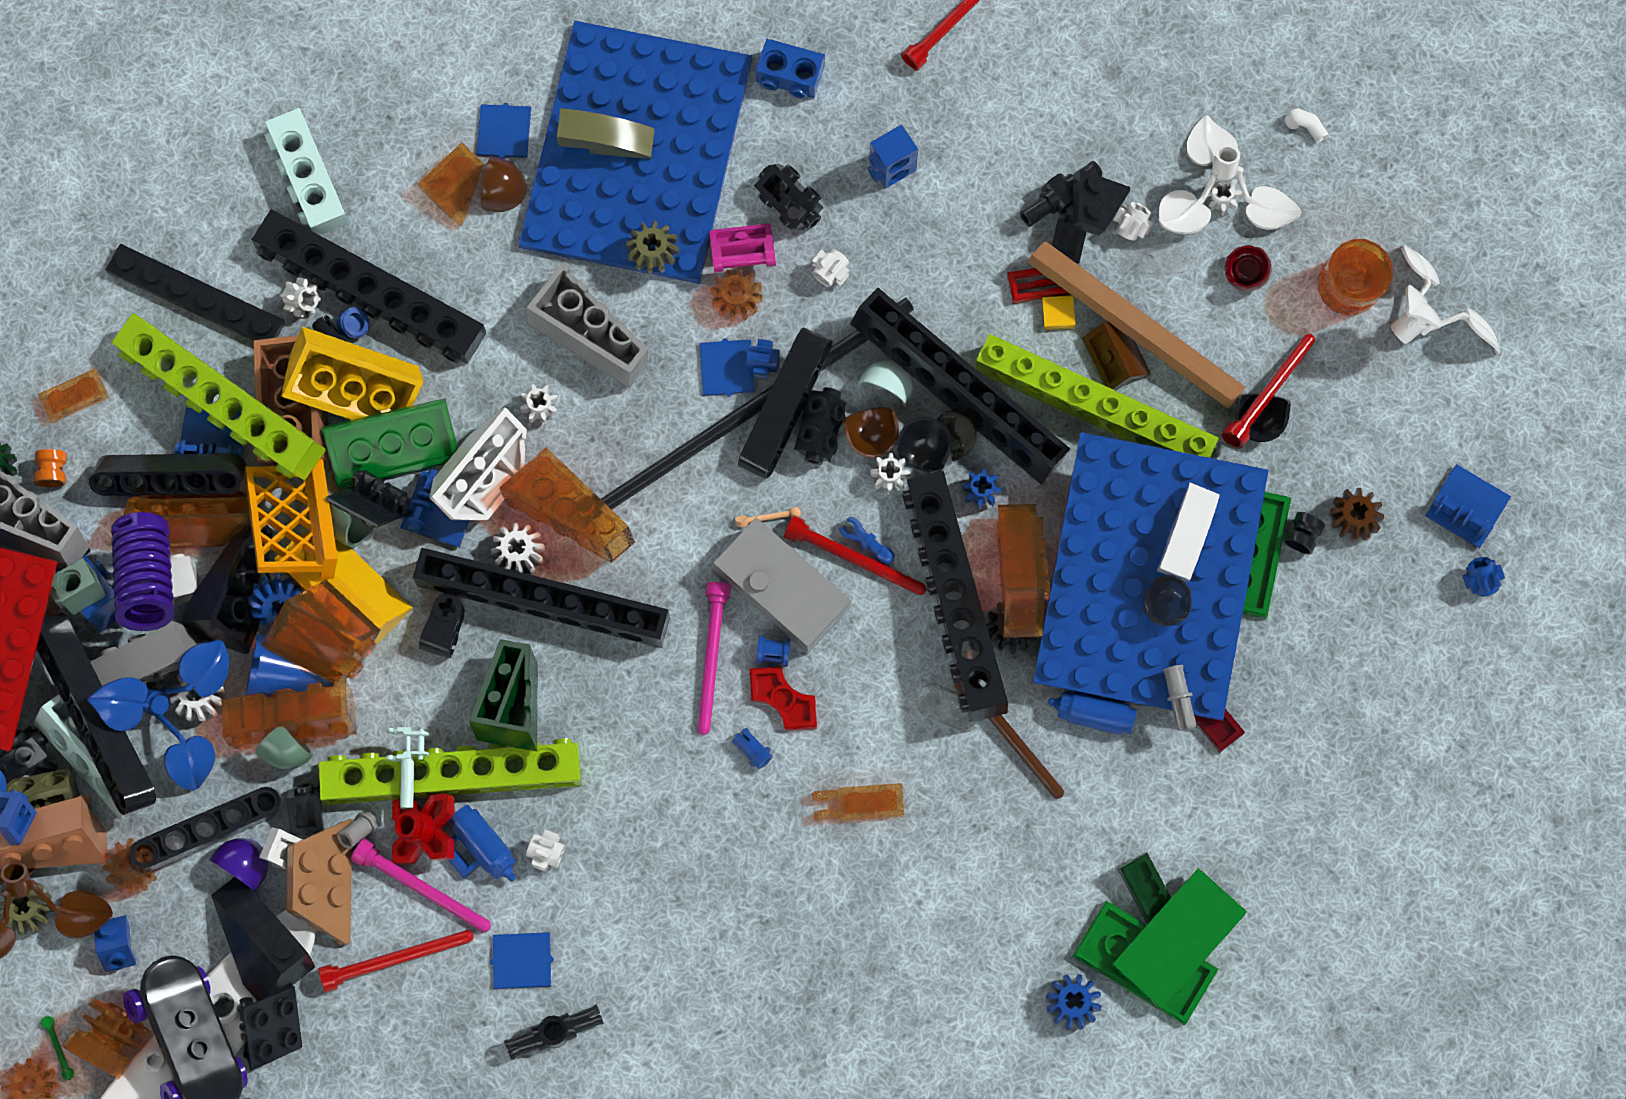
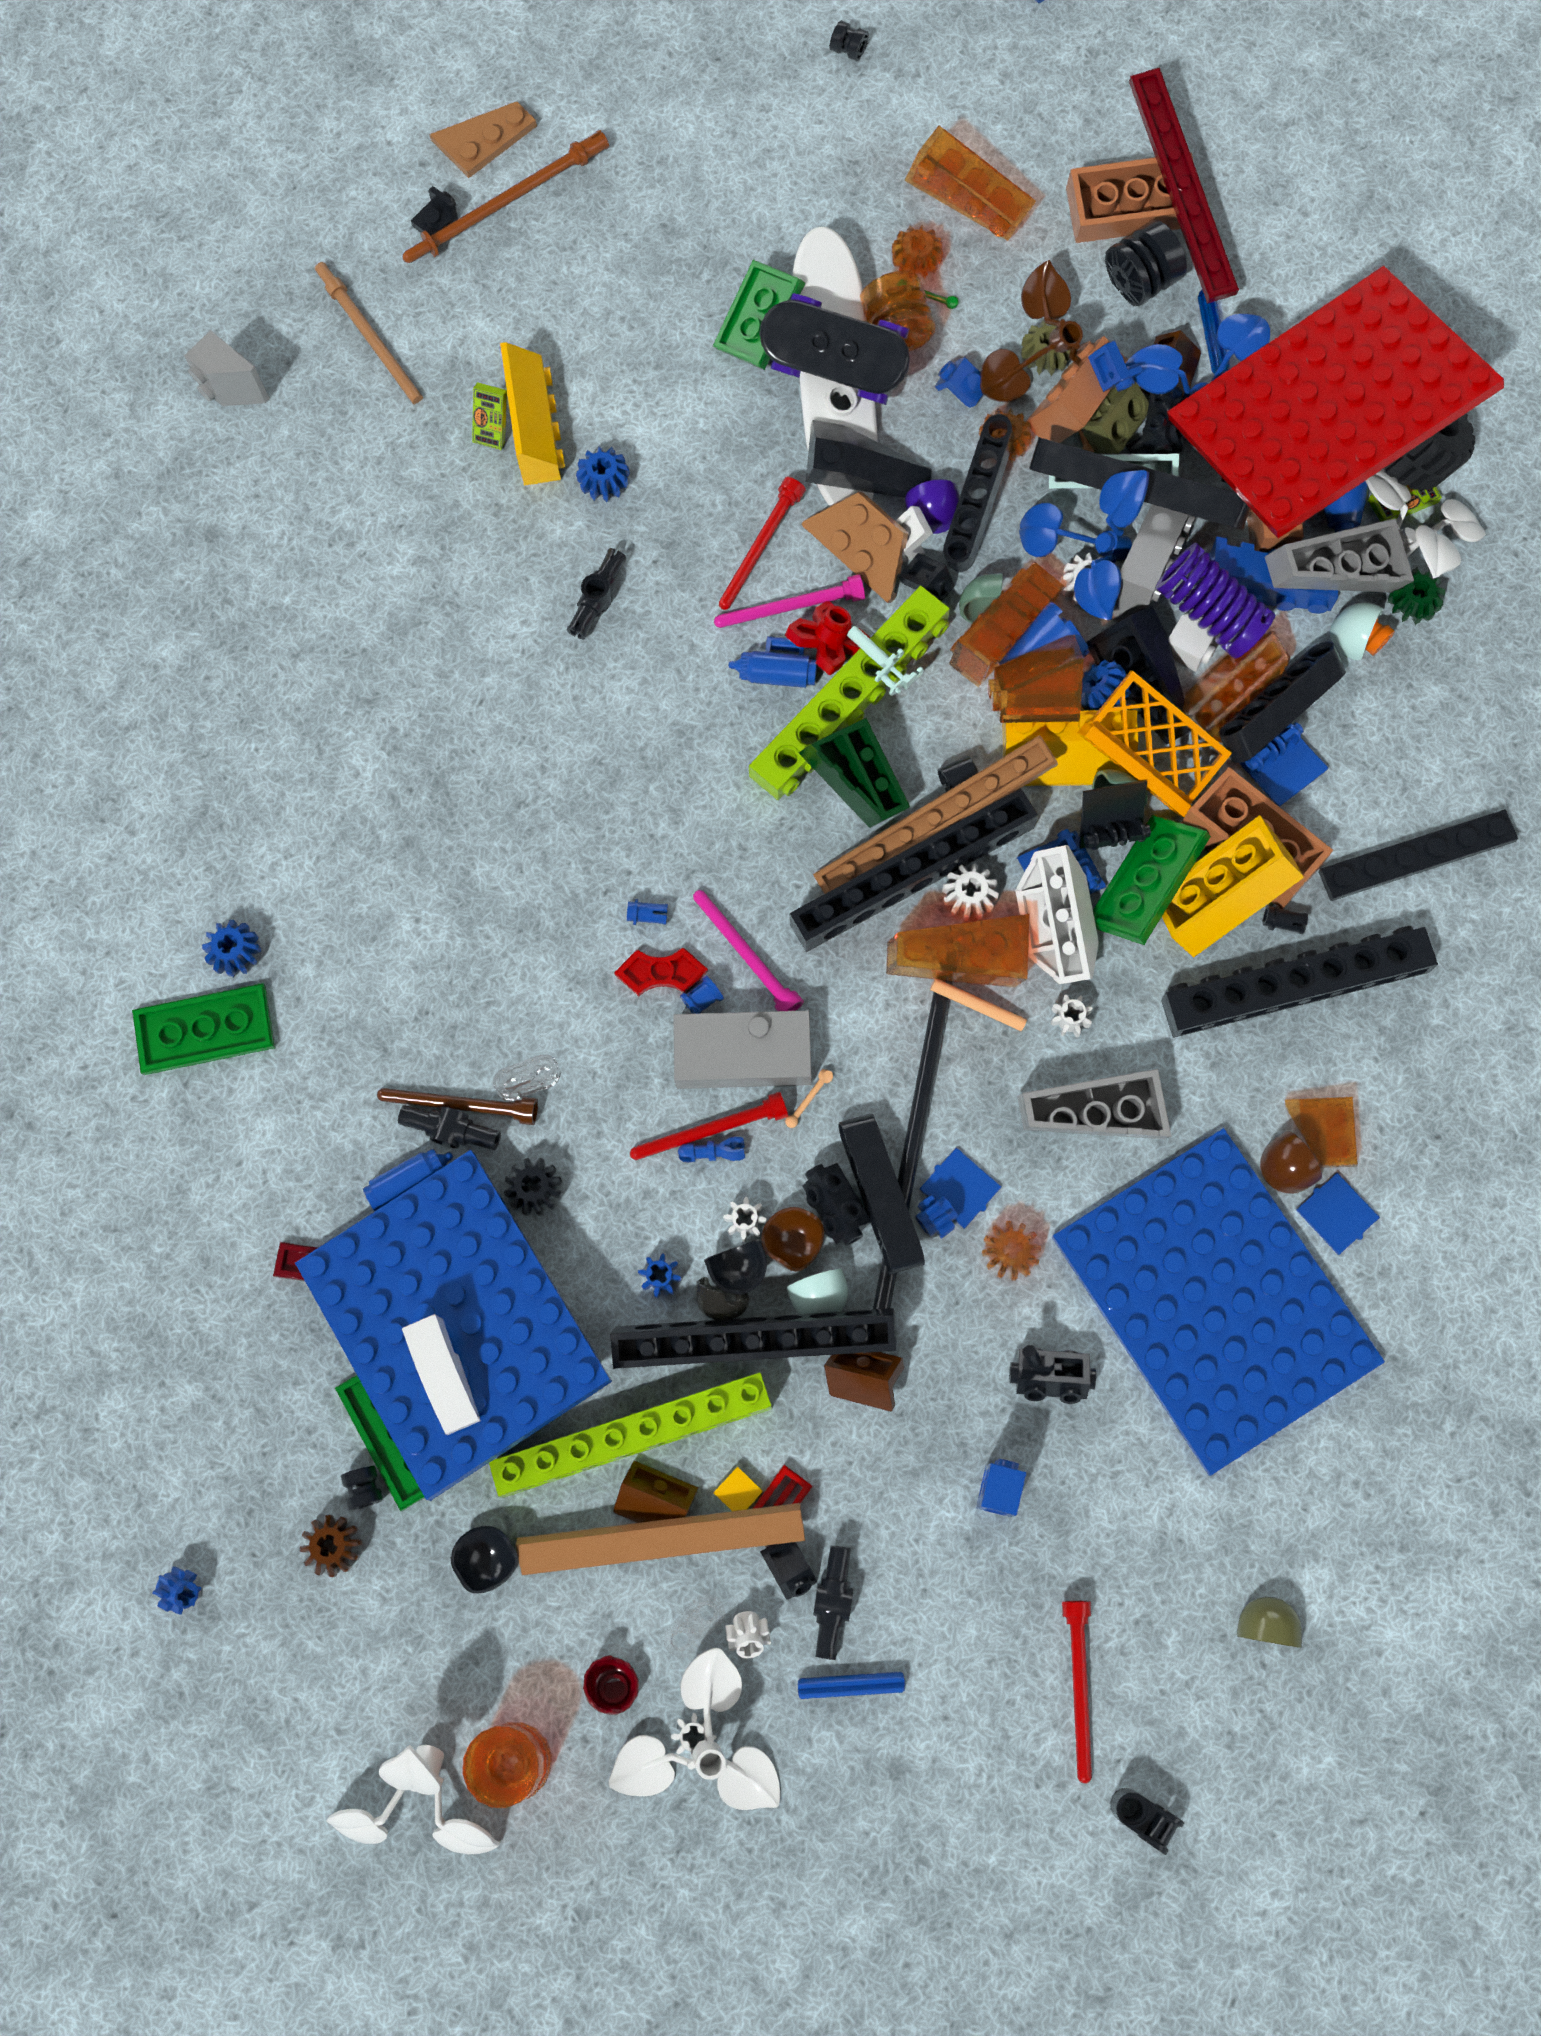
camera: 140 degrees right, 0 degrees up
(56, 482) = (1353, 628): none -> light aqua helmet
(73, 395) = (1417, 701): clear orange plate -> none
(85, 594) = (1247, 546): sand green brick -> none
(269, 1027) = (793, 414): black hinge -> none
(290, 130) = (1499, 1031): light aqua brick -> none
(300, 297) = (1339, 923): white gear -> none
(301, 451) = (1309, 782): lime brick -> none
(353, 323) = (1278, 944): blue tile -> none
(364, 825) = (874, 596): light grey pin -> none
(491, 616) = (958, 803): none -> medium nougat tile
(521, 960) = (670, 623): blue piece -> none
(545, 850) = (725, 702): white gear -> none
(591, 467) = (978, 1004): none -> light nougat bar
(604, 134) = (1251, 1276): olive slope -> none
(641, 243) = (1113, 1205): olive gear -> none
(751, 242) = (1053, 1298): dark pink plate -> none
(793, 61) = (1169, 1499): blue brick -> none
(830, 267) = (958, 1345): white gear -> none
(862, 802) = (527, 950): clear orange hinge -> none
(912, 295) = (864, 1378): none -> reddish brown panel
(934, 491) = (489, 1103): black brick -> none
(1022, 569) = (562, 1229): clear orange wedge -> none
(1033, 722) = (449, 1127): none -> black pin
(1095, 140) = (851, 1685): none -> blue axle
(1095, 201) = (793, 1618): black wing -> none
(1145, 885) = (247, 1082): dark green plate -> none
(1167, 601) = (409, 1299): clear smoke hair -> none
(1179, 697) = (340, 1240): light grey axle -> none
(1179, 938) = (187, 1064): green tile -> none
(1237, 432) = (488, 1520): red piece -> none
(1307, 120) = (682, 1890): white arm -> none
(1468, 506) = (243, 1647): blue hinge -> none

